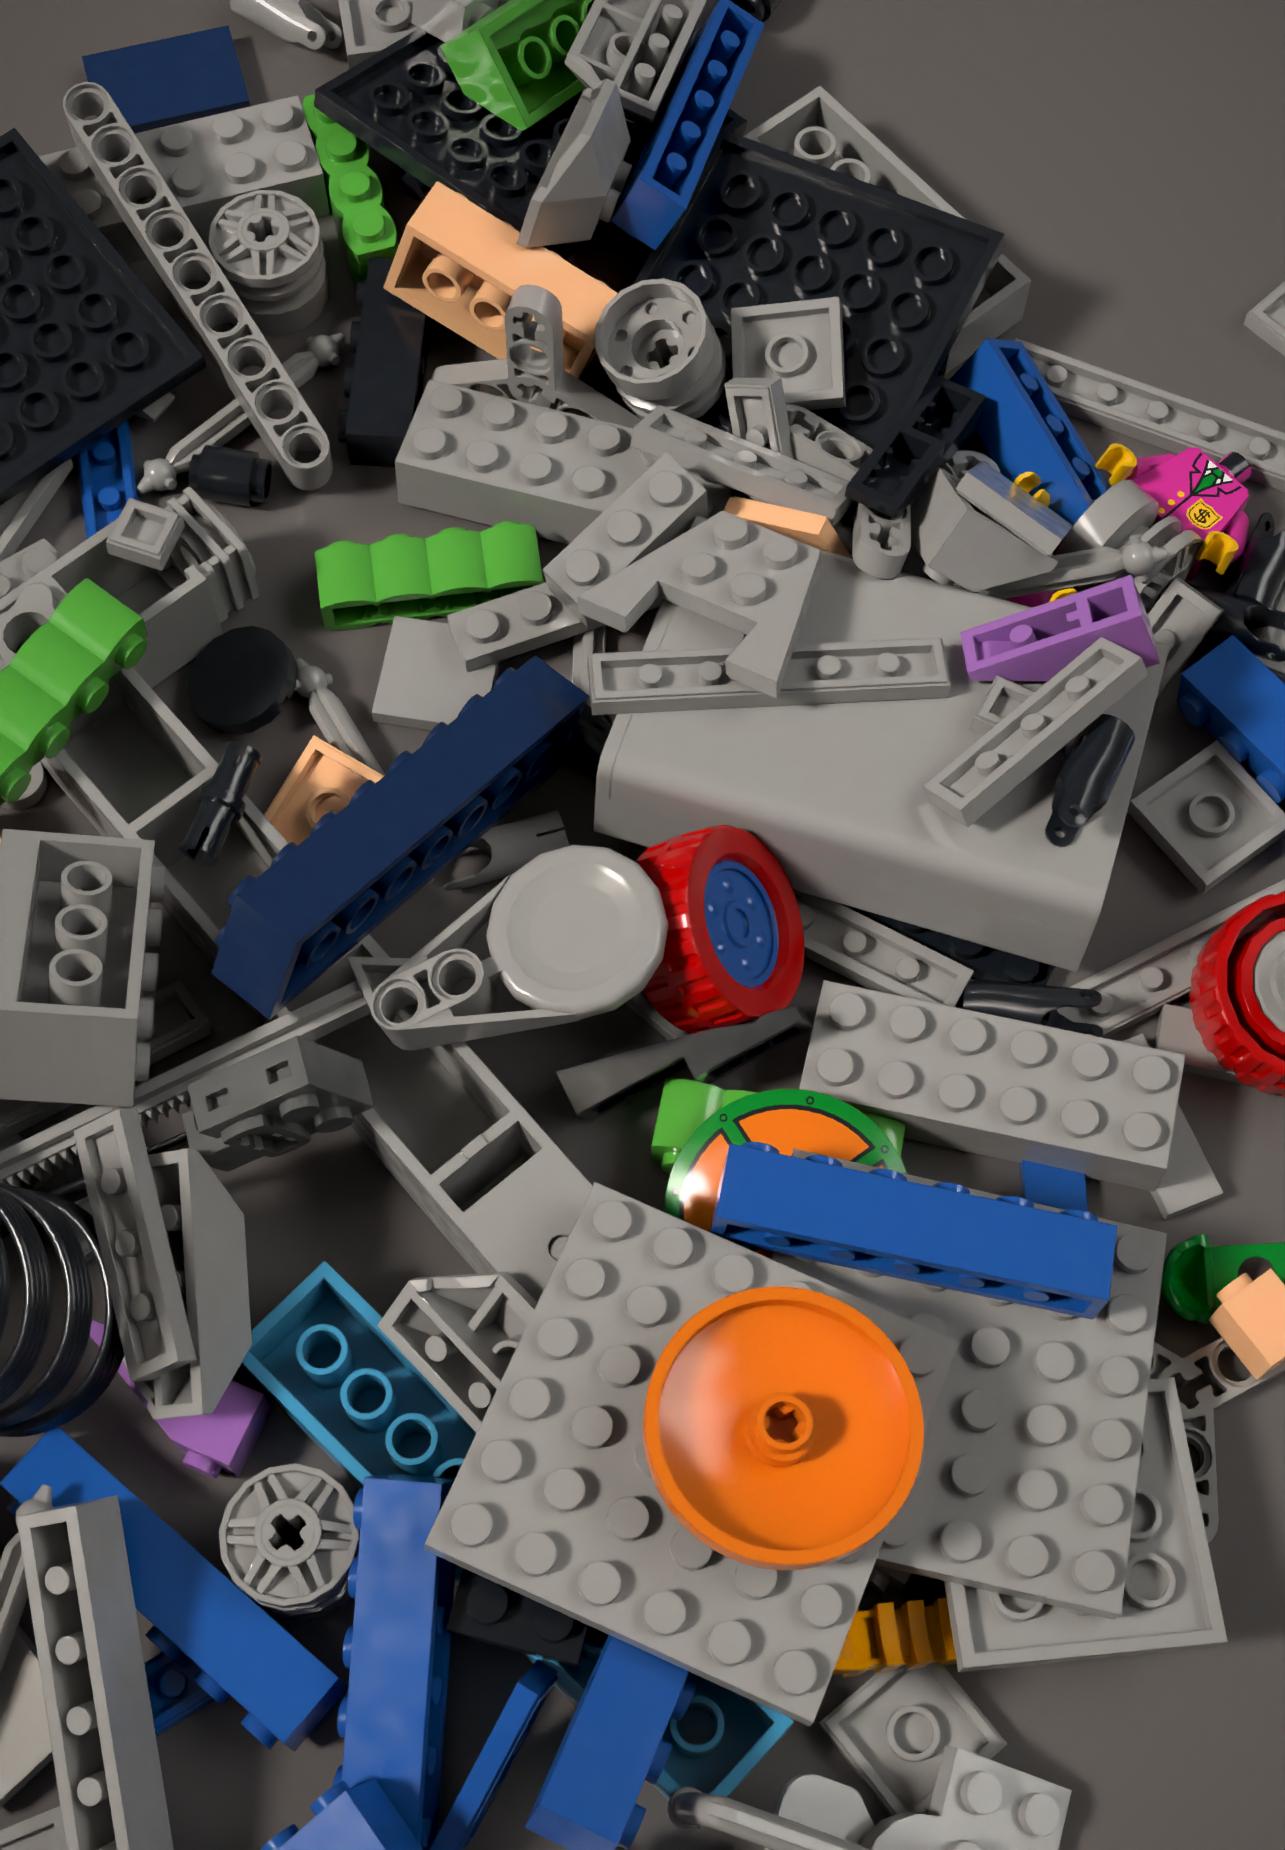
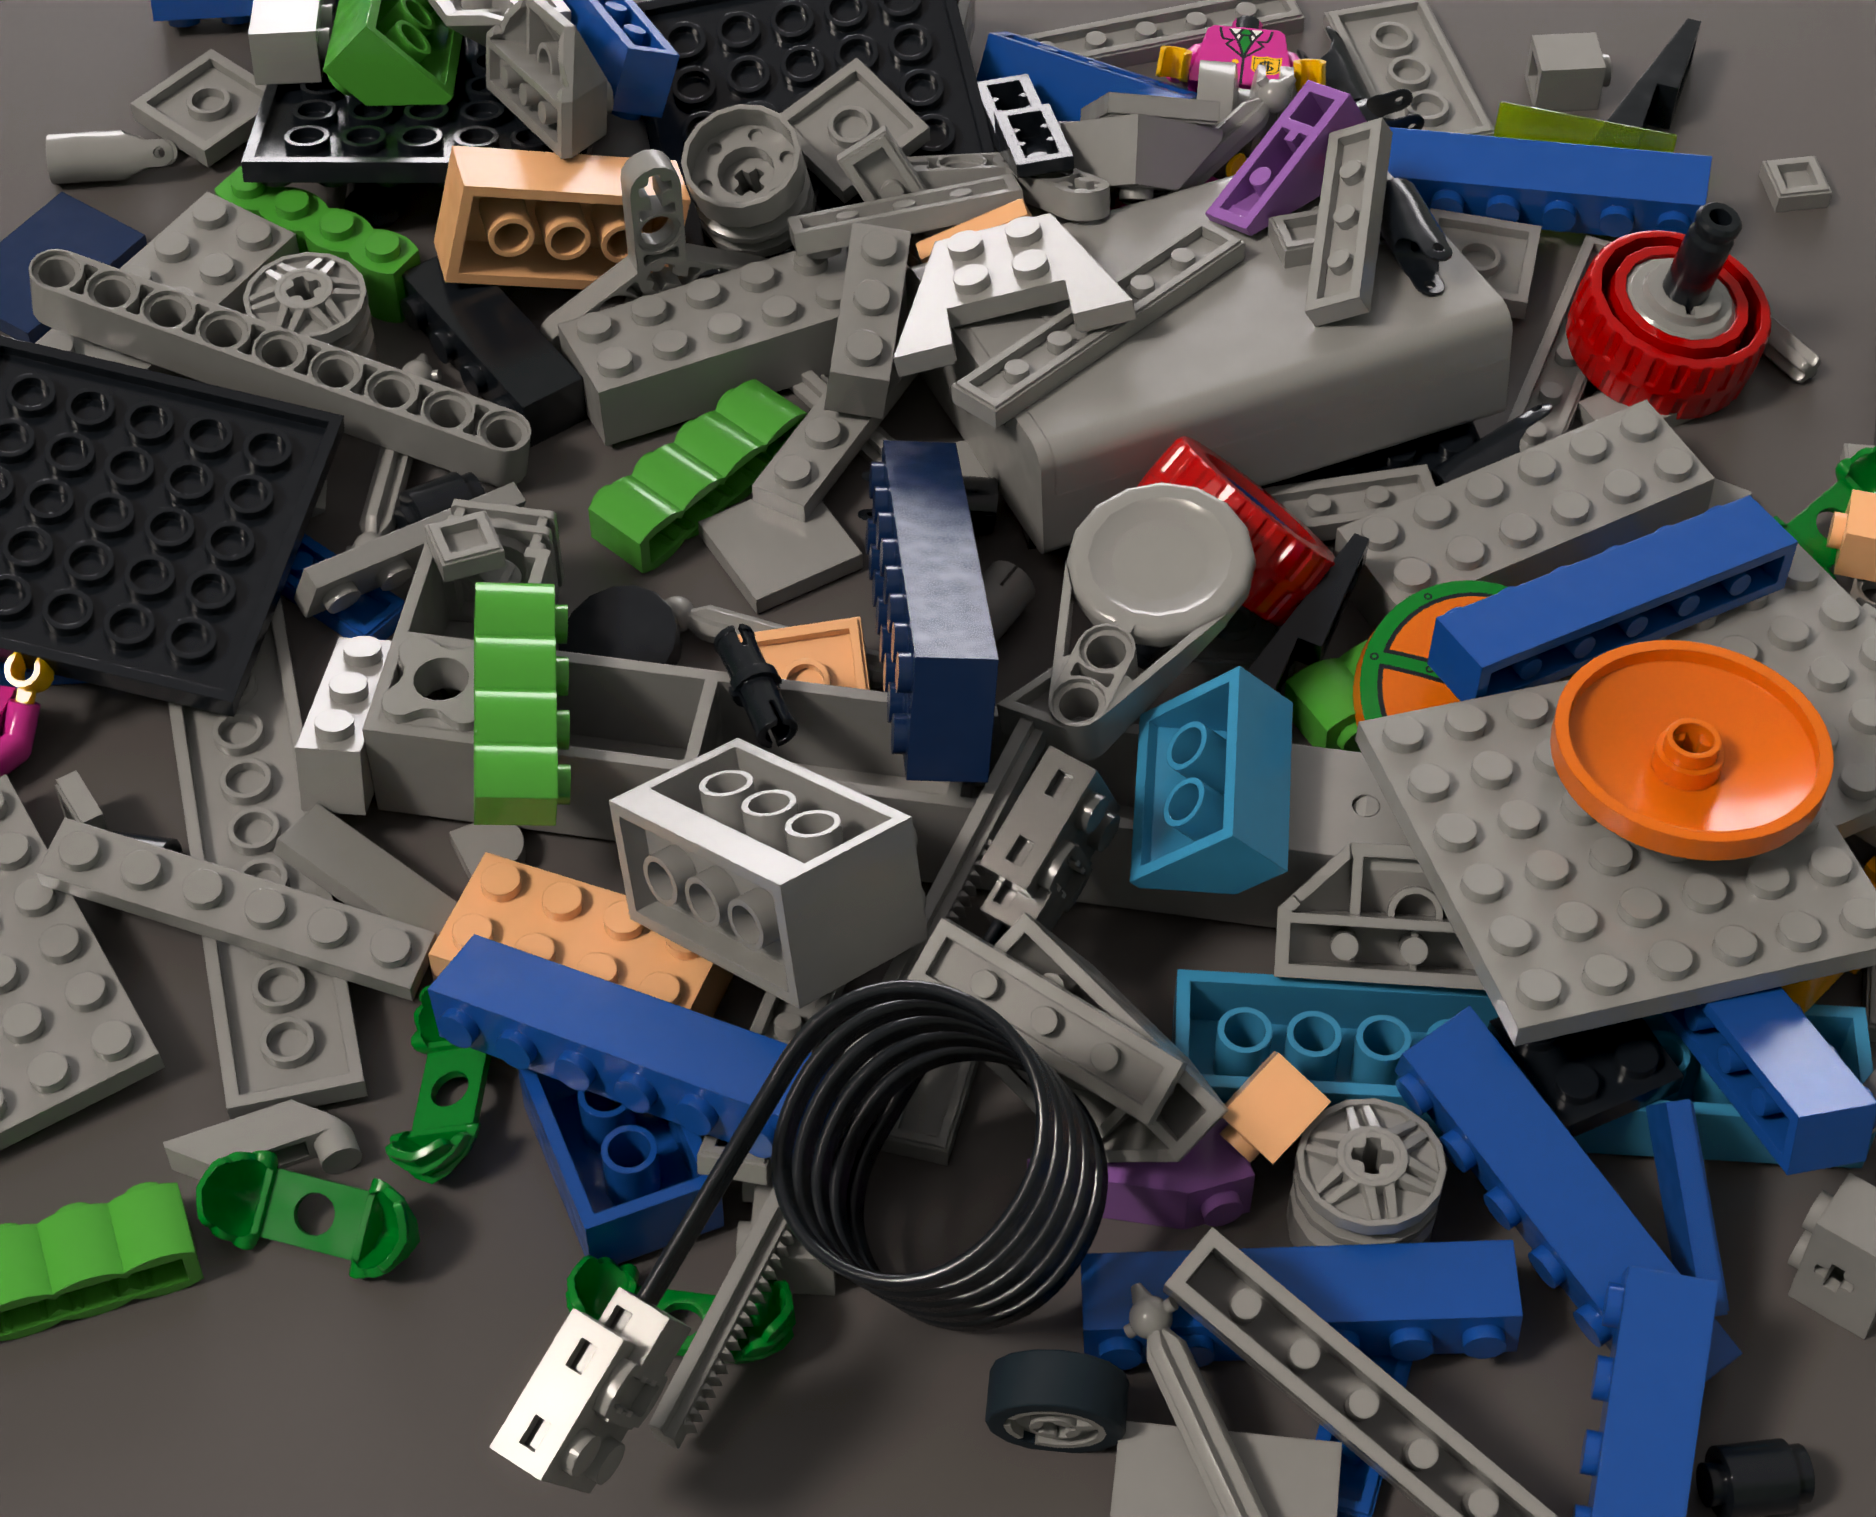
camera: 40 degrees left, 15 degrees down
(87, 491) = (378, 563): none -> light grey plate
(265, 1432) = (1271, 1110): none -> light nougat brick
(445, 1150) = (1213, 788): none -> dark azure slope

